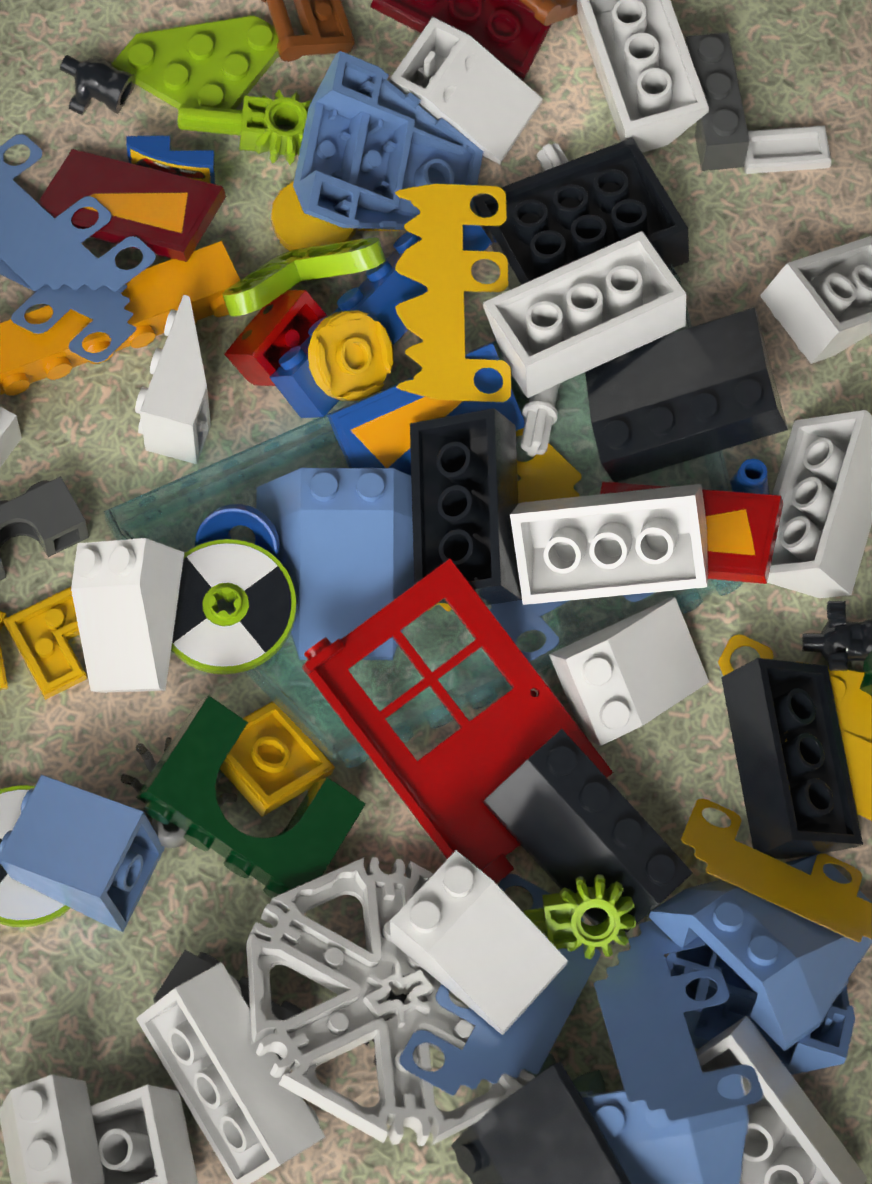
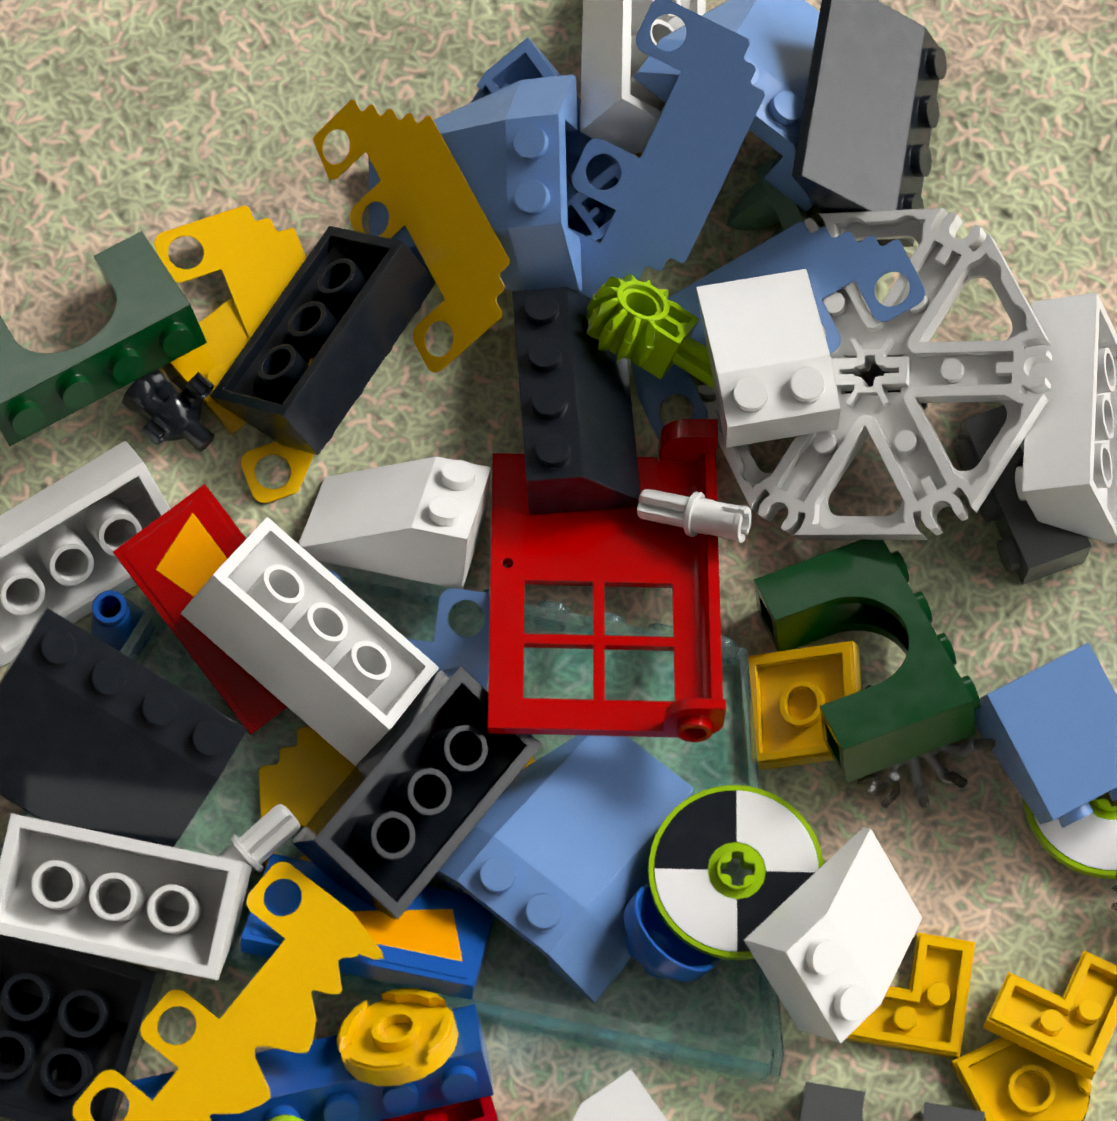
camera: 135 degrees left, 5 degrees up
(439, 811) = (696, 514): none -> white axle

